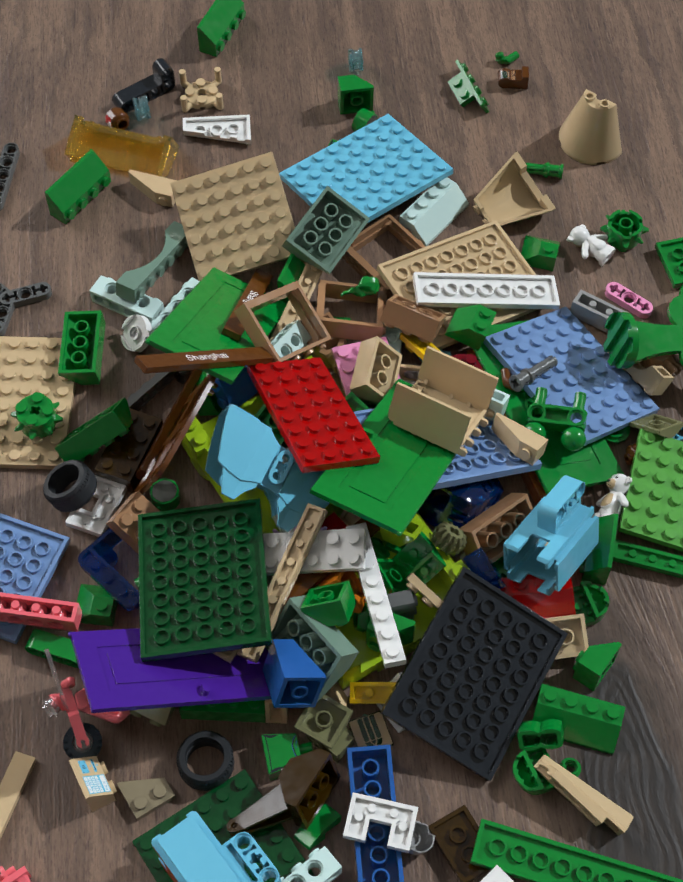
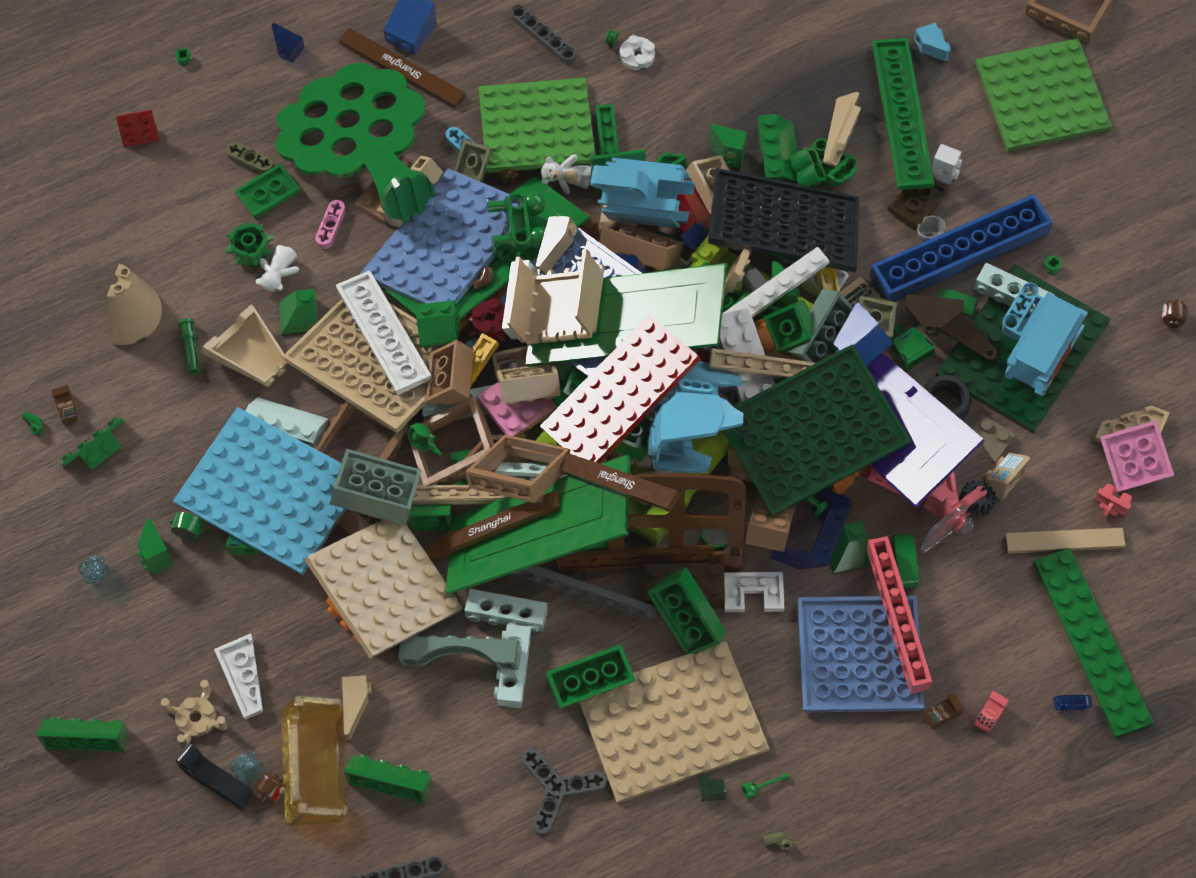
camera: 110 degrees left, 5 degrees up
(36, 416) = (692, 688): green brick -> none
(78, 494) = (765, 629): black tyre -> none
(143, 328) = (542, 633): white plate -> none
(372, 809) = (929, 236): white plate -> none
(449, 538) = (678, 261): olive gear -> none
(528, 375) = (479, 258): dark grey pin -> none
(592, 310) = (363, 238): light grey brick -> none

